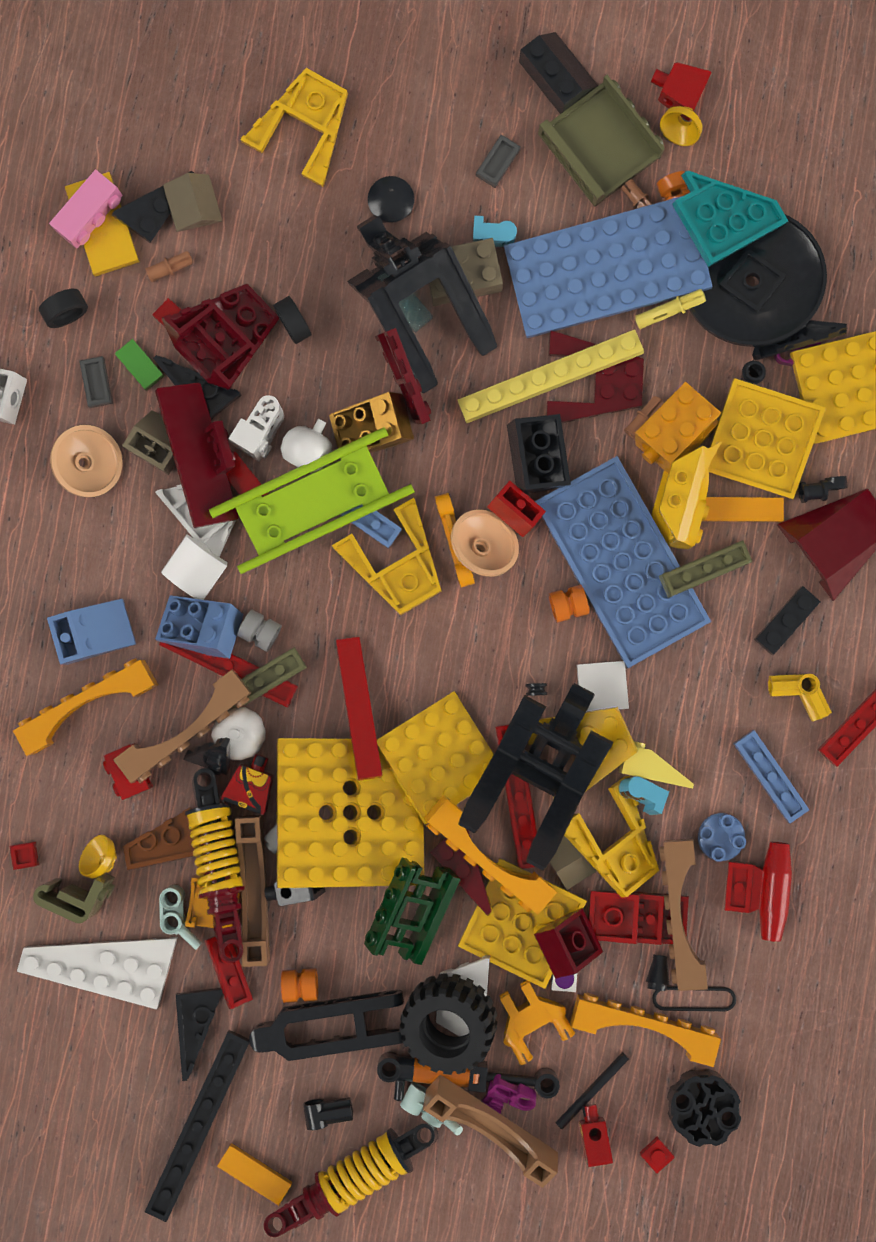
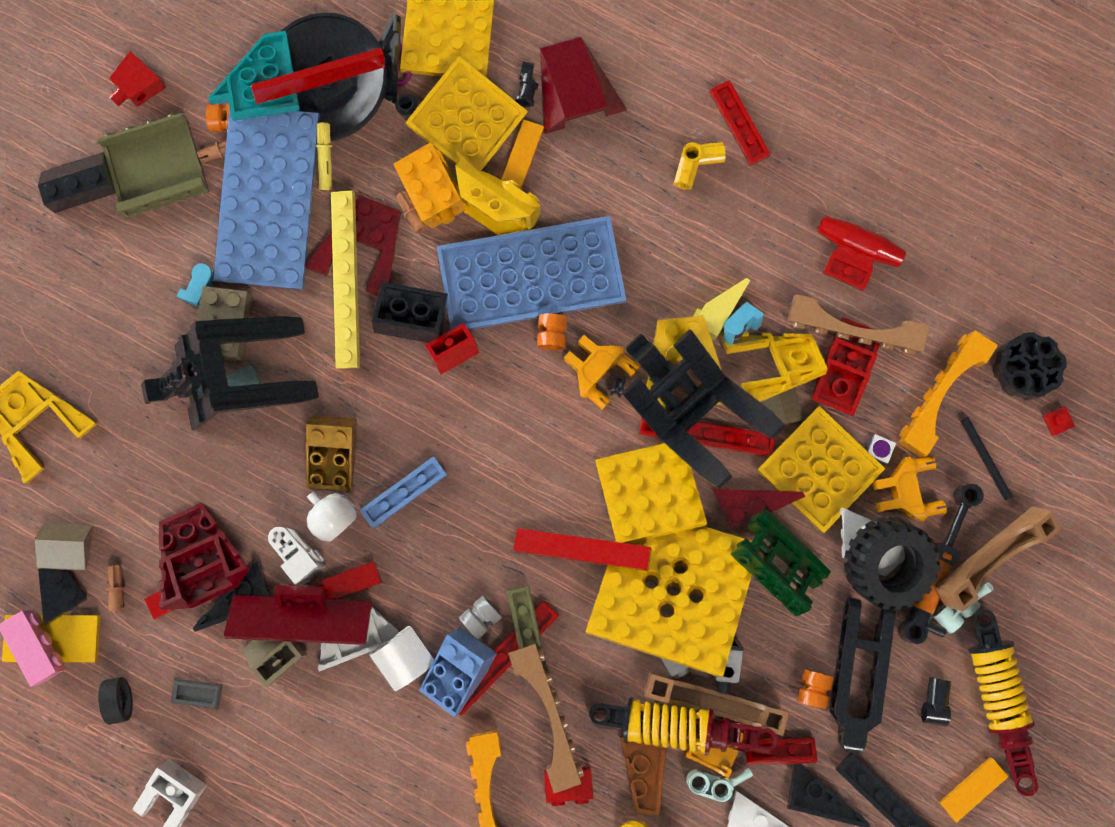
camera: 70 degrees left, 5 degrees down
(91, 631) = (426, 776): medium blue slope -> none
(101, 459) = (266, 712): light nougat dish -> none
(139, 364) = (195, 647): bright green tile -> none
(212, 756) = (581, 700): black wing -> none
(244, 730) = (569, 667): white piece -> none
(250, 786) = (619, 673): torso -> none
(292, 319) = (207, 490): black tyre -> none
(312, 500) = (379, 528): lime piece -> none
(391, 199) = (132, 365): black dish -> none
(403, 376) = (306, 404): dark red wing -> none
(405, 581) = (482, 470): yellow wing -> none
(448, 520) = (485, 414): light orange piece -> none
(489, 534) = (472, 386): light nougat dish -> none
(498, 161) = (136, 260): dark grey tile -> none
(503, 1091) = (964, 537): magenta piece -> none
(530, 889) = (794, 449): light orange arch -> none
(548, 660) = (596, 366): none -> light orange connector
(568, 943) = (852, 433): dark red slope -> none
(595, 1147) = (1037, 471): red torso -> none
(606, 682) = (631, 322): white tile -> none
(658, 973) = (901, 365): black cone -> none
(678, 130) = (171, 97): yellow piece -> none
(696, 1009) = (940, 348): black piece -> none
(705, 569) = (562, 205): olive tile -> none
(721, 837) = (799, 271): medium blue dish -> none
(749, 273) = (318, 76): none -> red tile
(771, 776) = (760, 212): medium blue plate -> none
(787, 620) = (630, 153): black plate -> none

